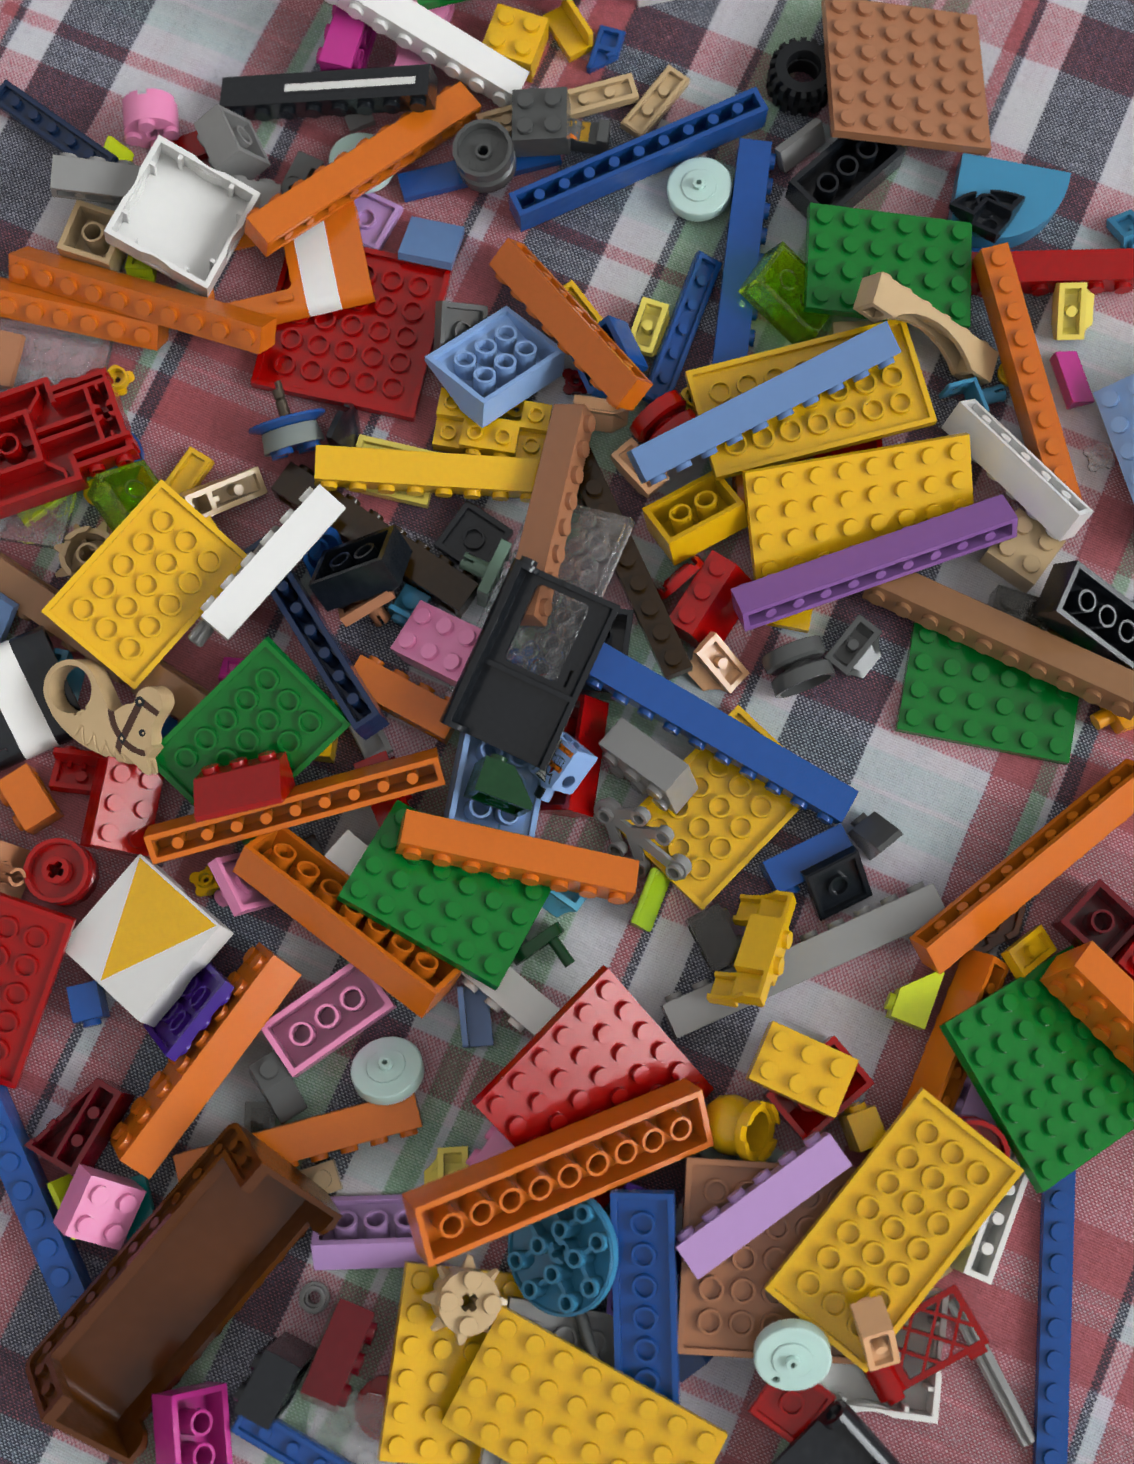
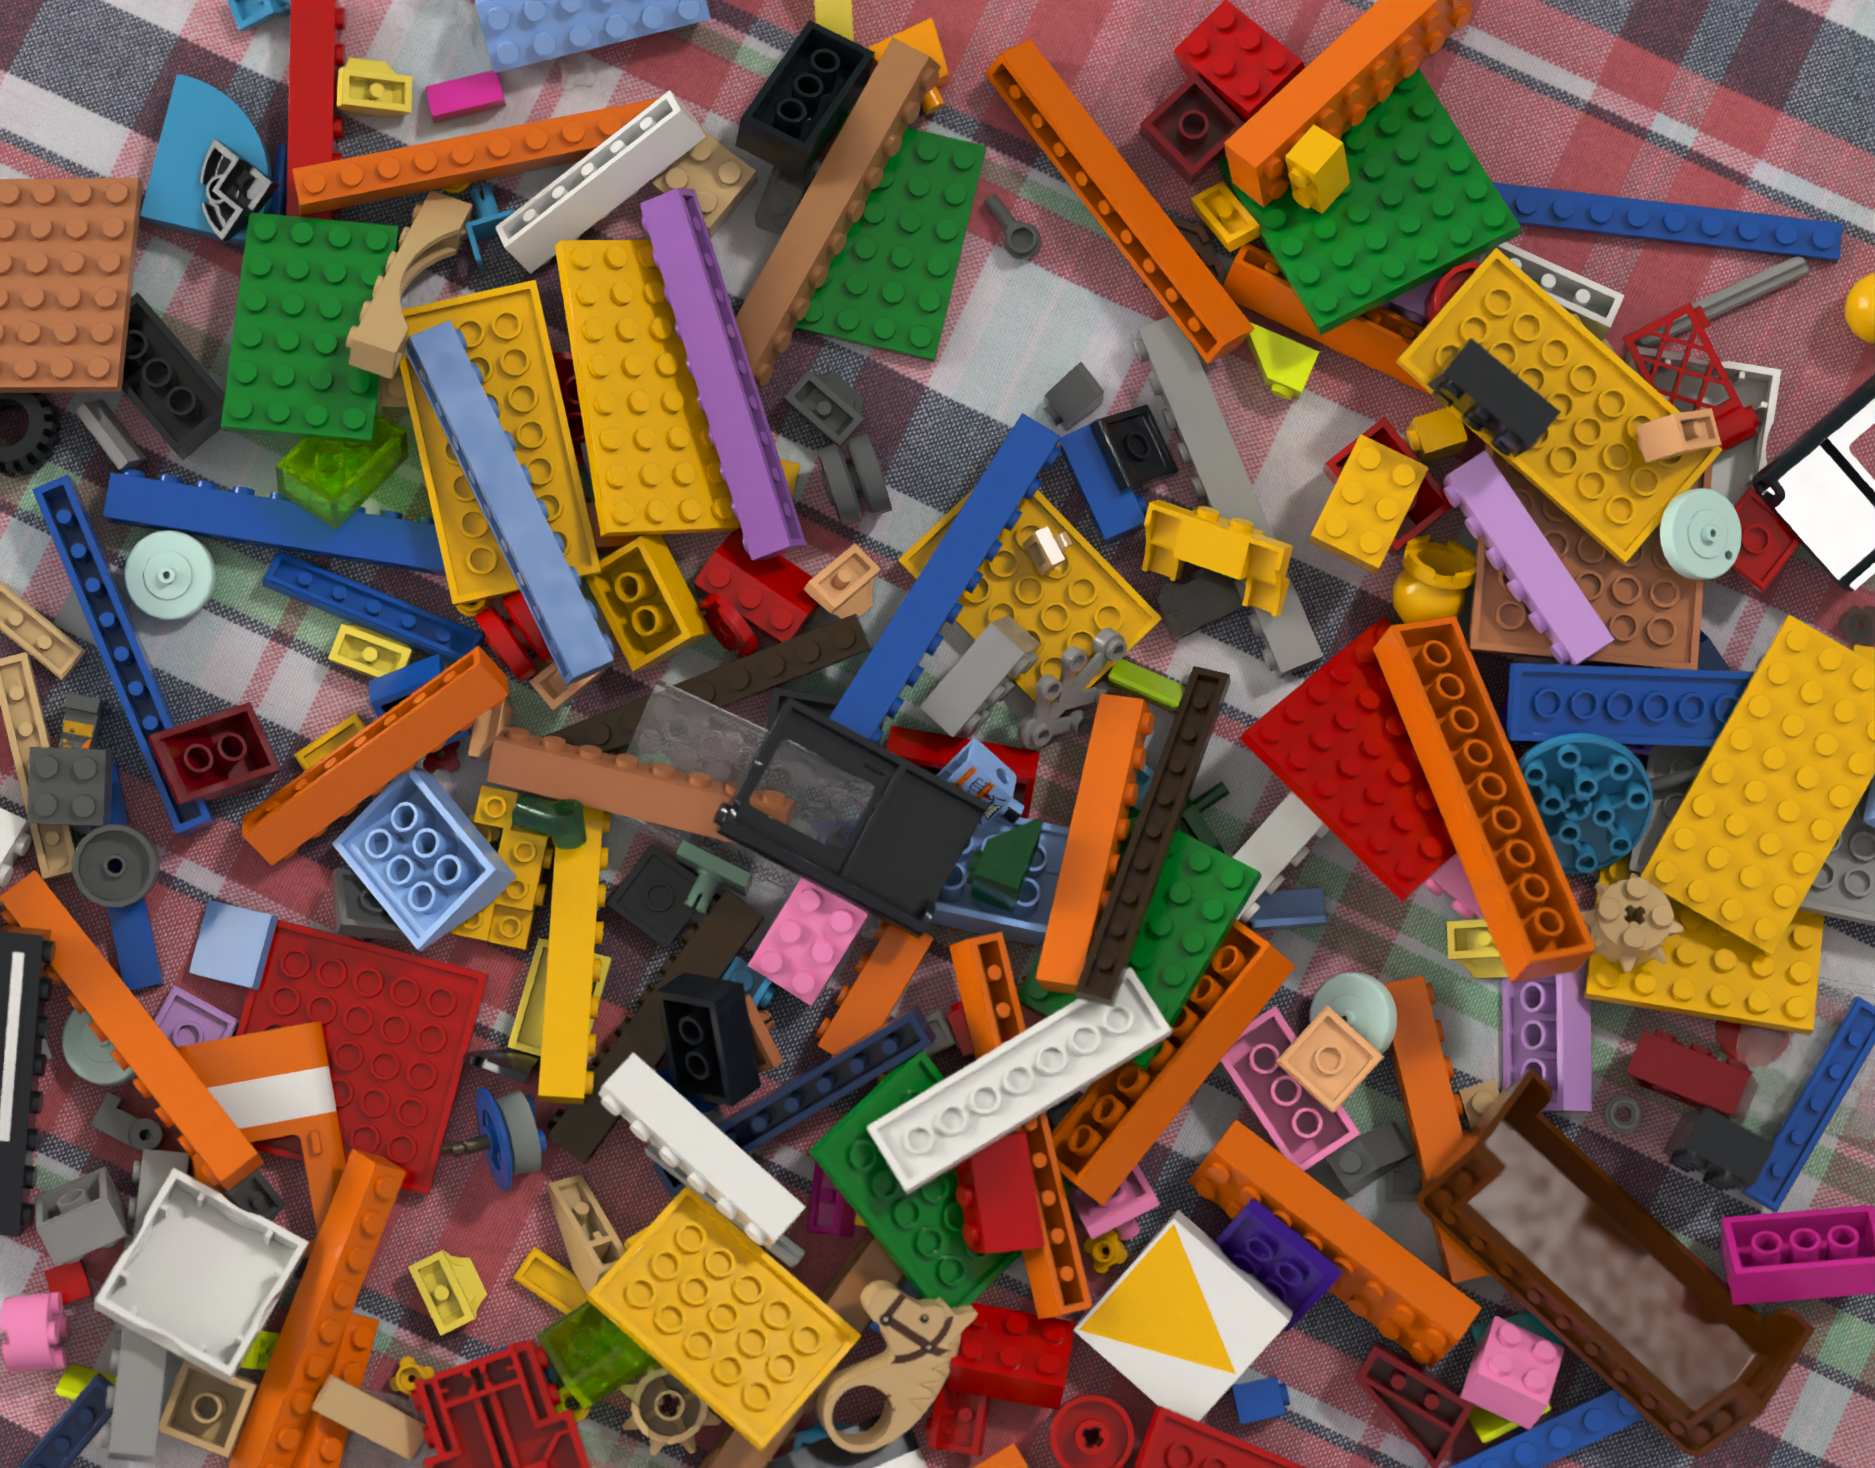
camera: 85 degrees left, 5 degrees up
(83, 339) = (369, 1417): none -> tan tile
(181, 401) = (449, 1289): none -> light yellow slope
(244, 262) = (256, 1196): none -> dark grey plate
(324, 797) = (1016, 1083): none -> white plate
(350, 1050) = (1329, 1059): none -> light nougat tile
(523, 901) = (1152, 837): none -> dark brown plate
(526, 452) = (560, 820): none -> clear green piece
(565, 214) = (215, 756): none -> dark red slope
(751, 815) = (1047, 550): none -> tan tile
(895, 1169) = (1492, 399): none -> black brick
(997, 792) = (1021, 238): none -> dark grey plate
(1076, 1019) = (1317, 169): none -> yellow brick

